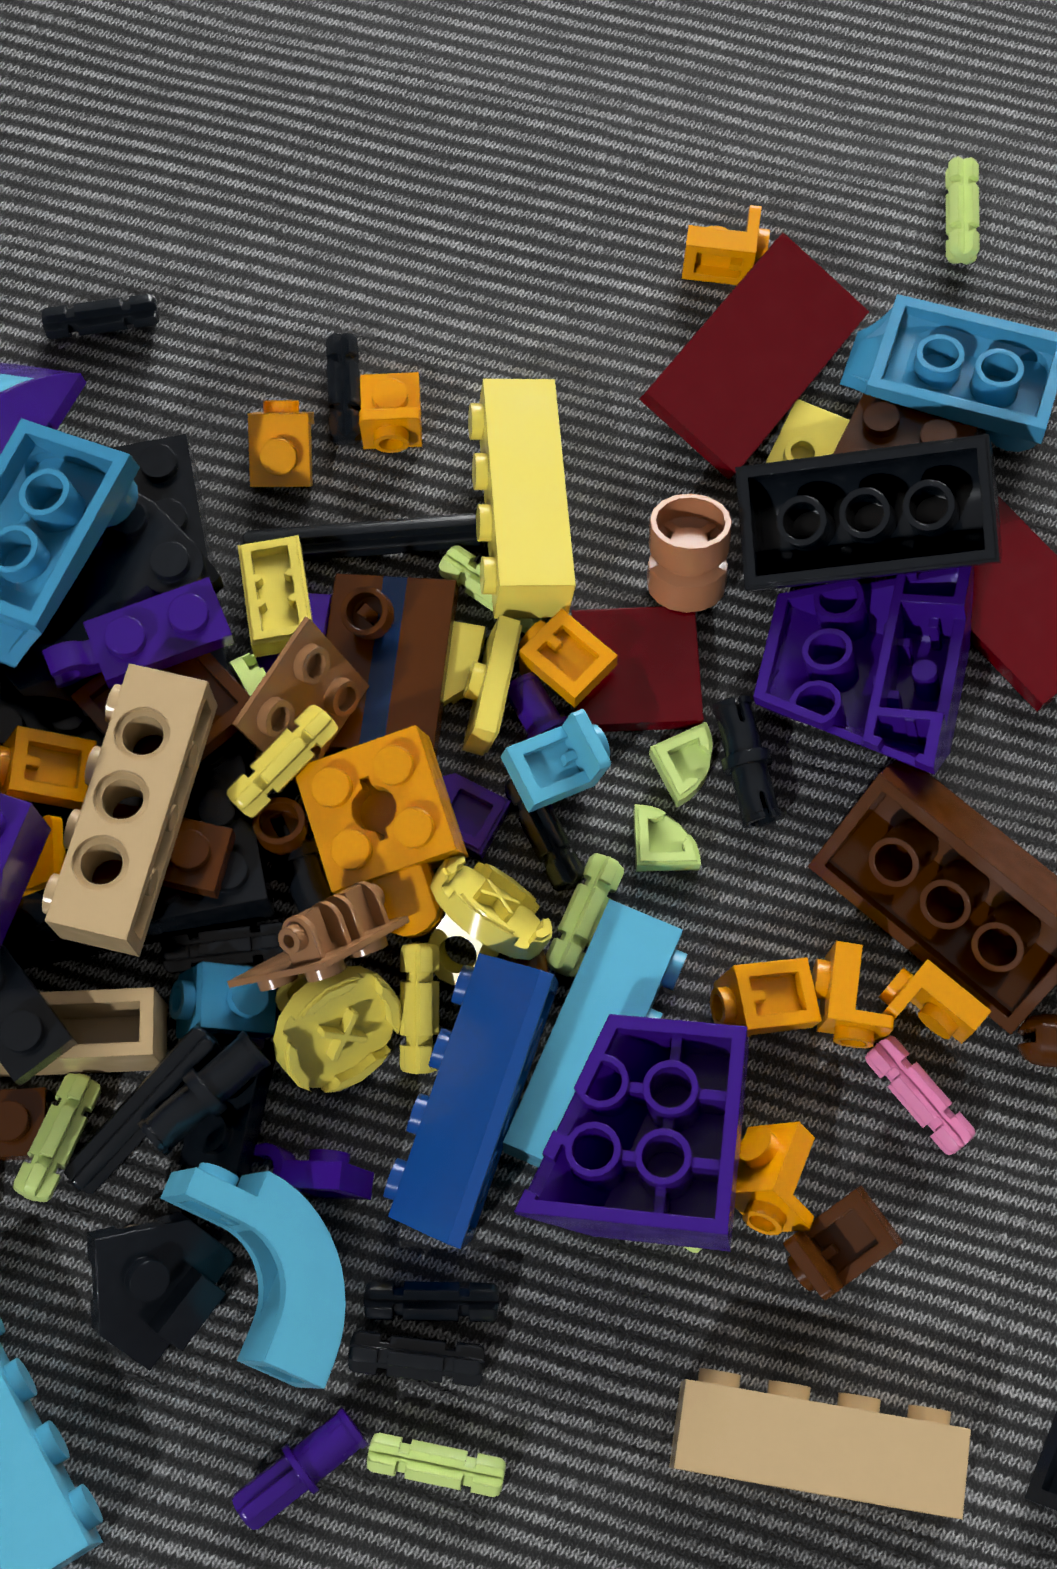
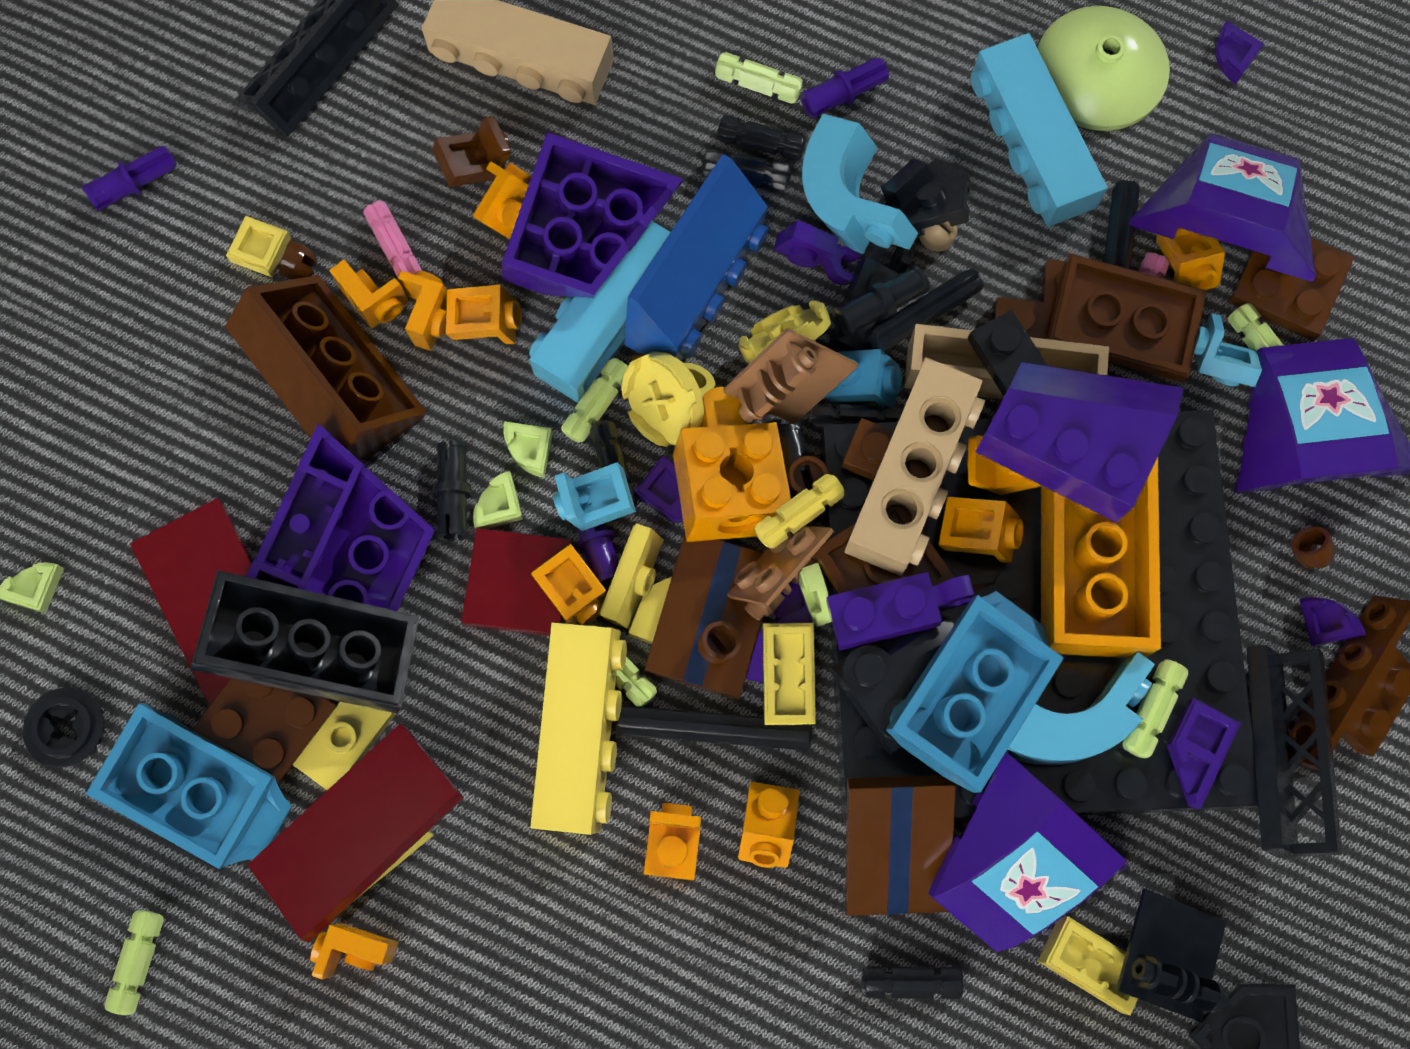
camera: 170 degrees left, 5 degrees up
(57, 1137) = (990, 295): yellowish green axle -> none
(133, 416) = (896, 842): none -> reddish brown tile
(343, 388) = (709, 873): black axle -> none
(419, 1006) = (725, 347): light yellow axle -> none
(688, 552) = (455, 653): nougat wheel -> none

